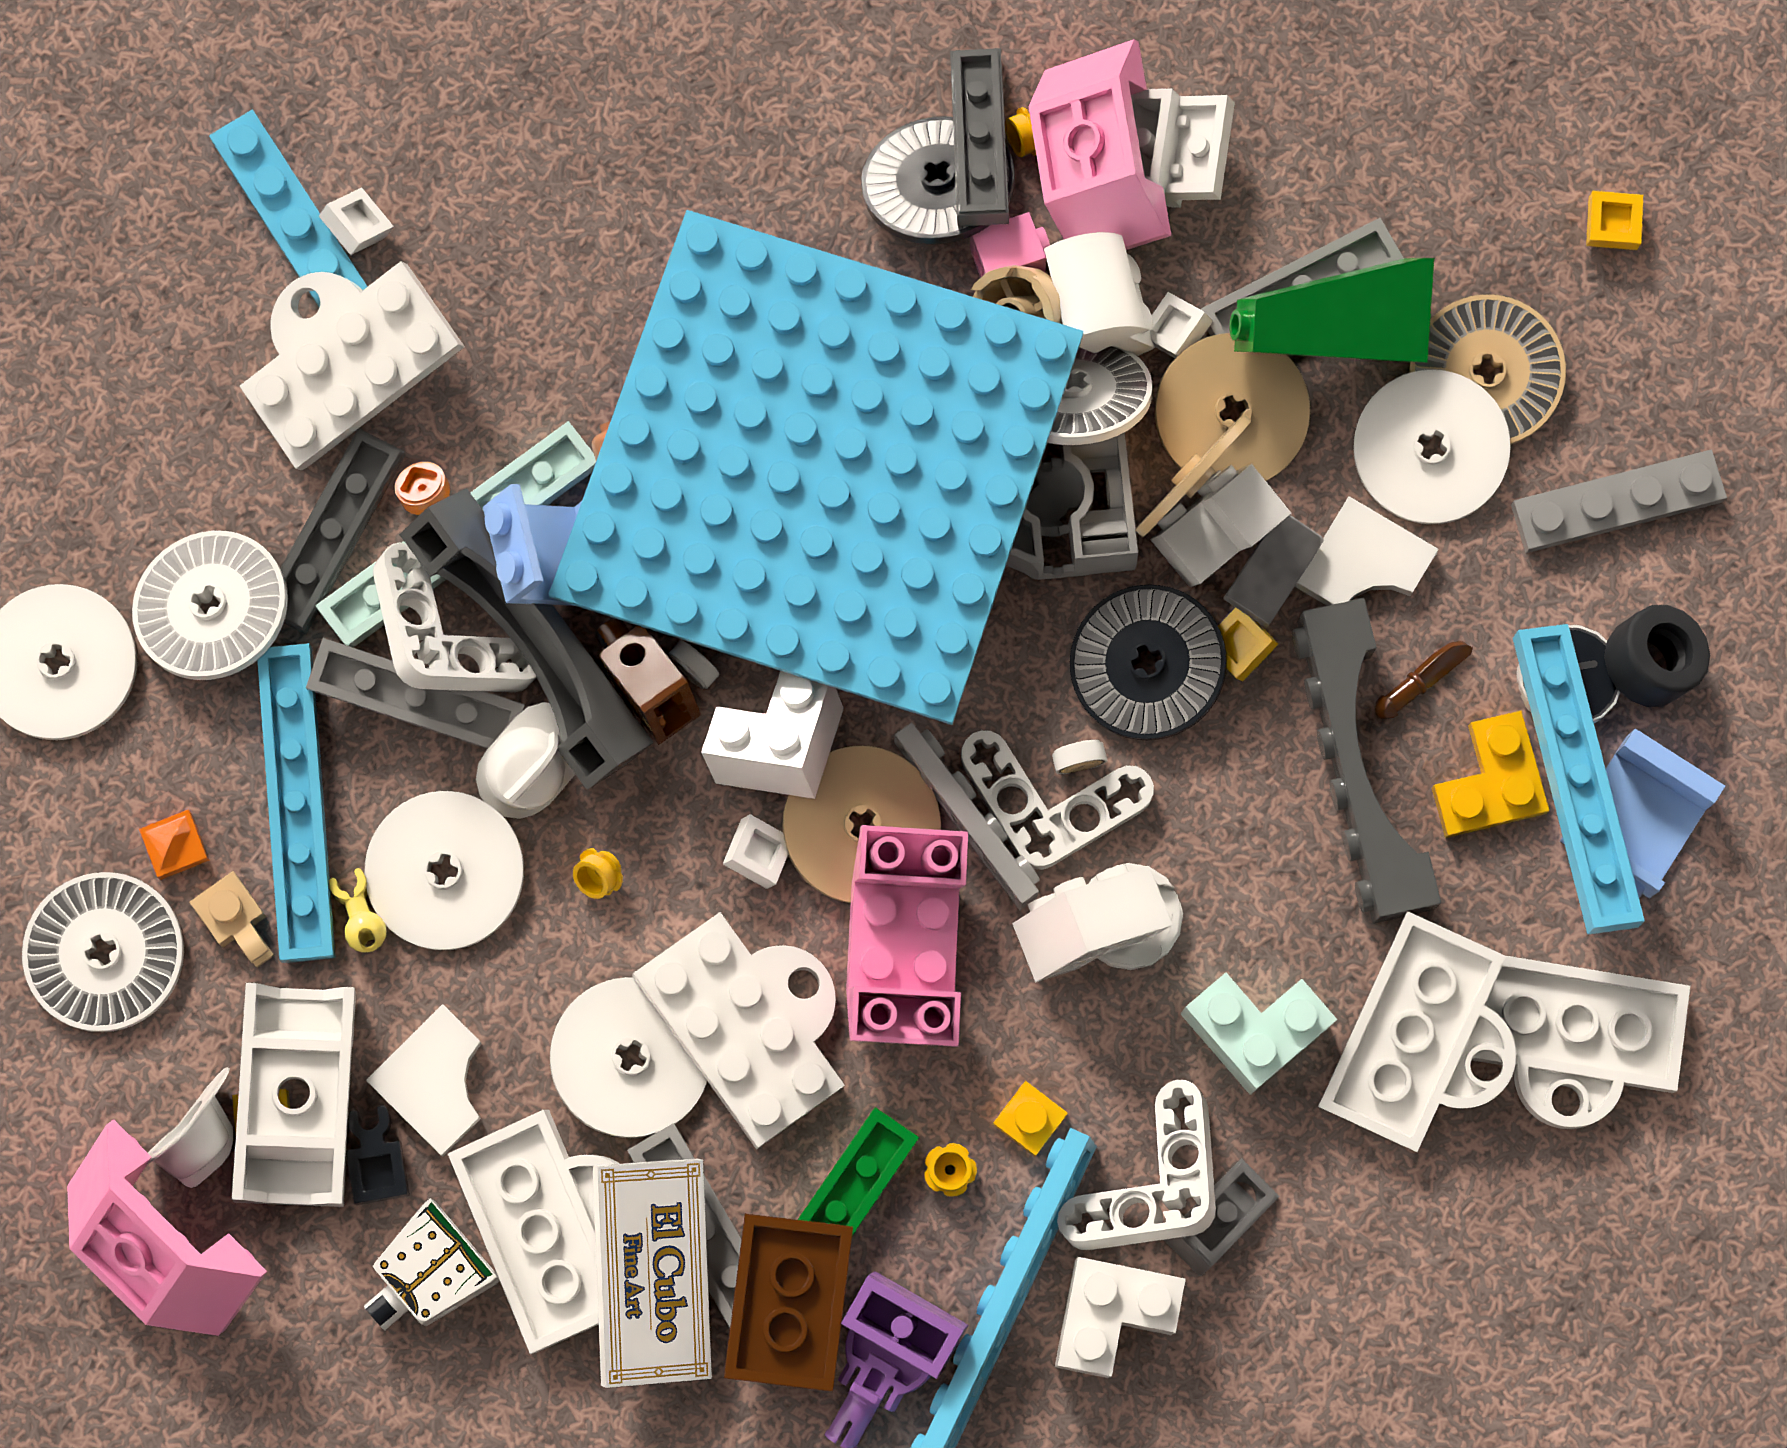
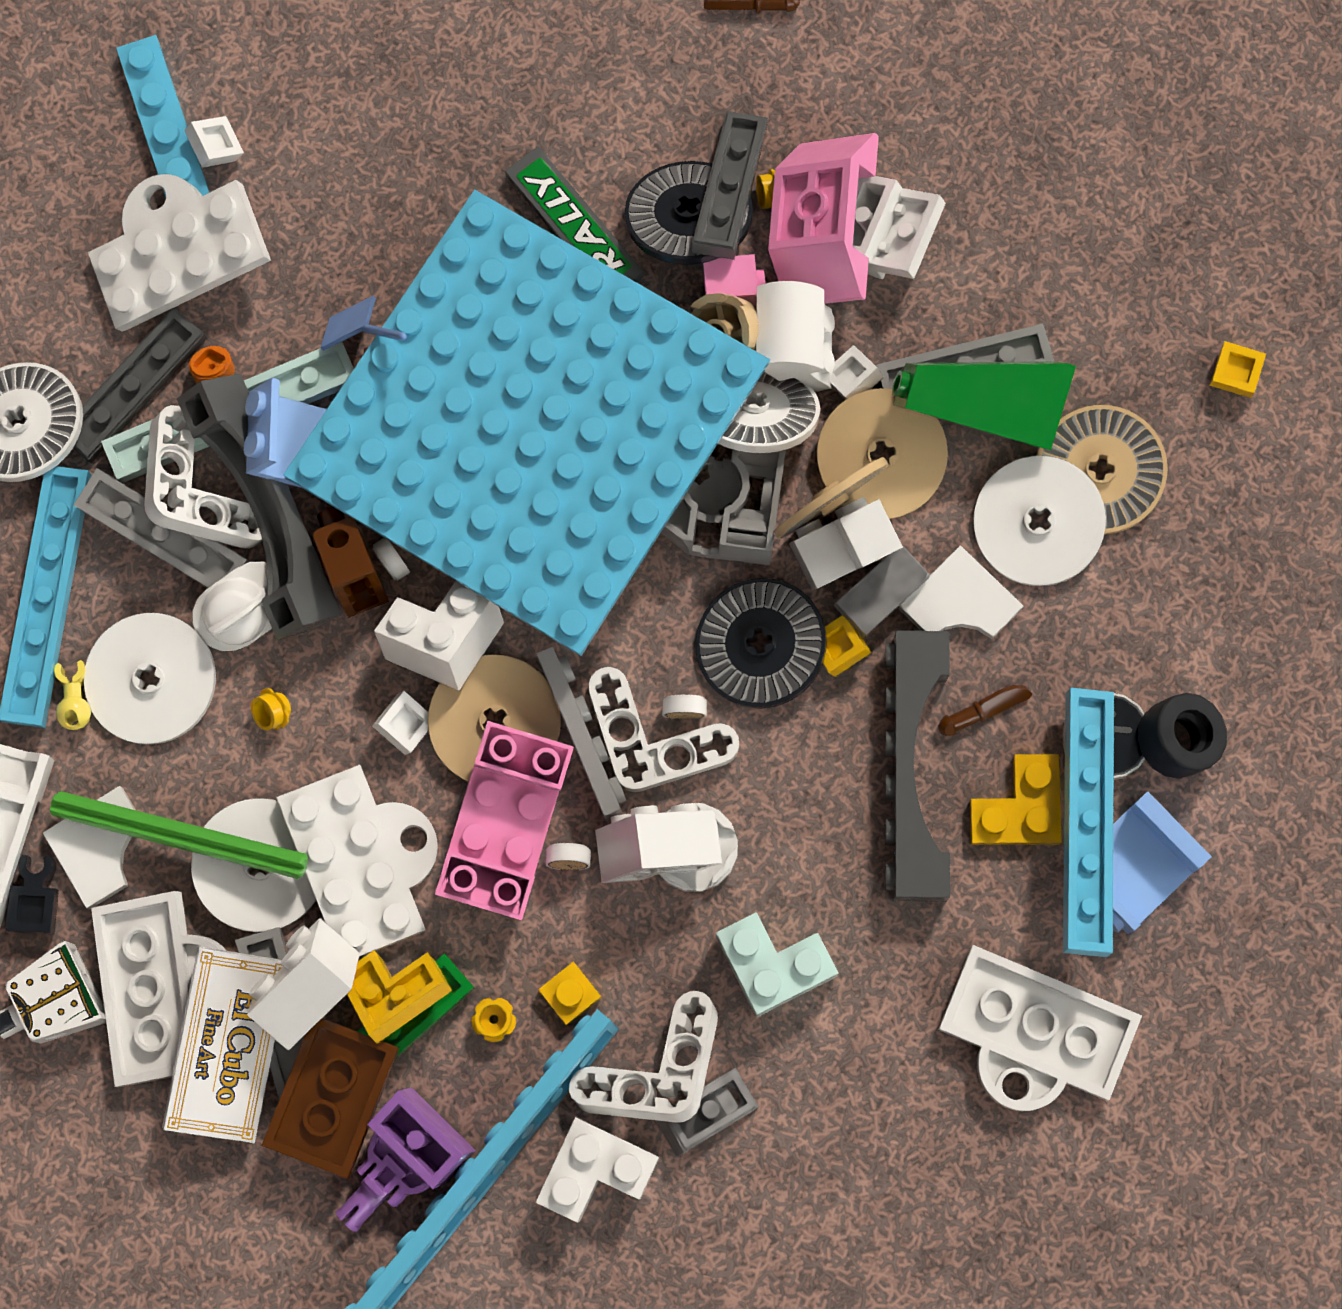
camera: 20 degrees right, 0 degrees up
(530, 1043) = (179, 835): none -> bright green axle
(581, 395) = (353, 321): none -> medium blue piece
(734, 1181) = (309, 984): none -> white brick
(794, 211) = (568, 213): none -> tile
(829, 1177) = (390, 1002): none -> yellow plate
(988, 961) = (568, 856): none -> white tile
(1421, 1035) = (906, 1003): white plate -> none
(1618, 501) = (1184, 601): light grey plate -> none

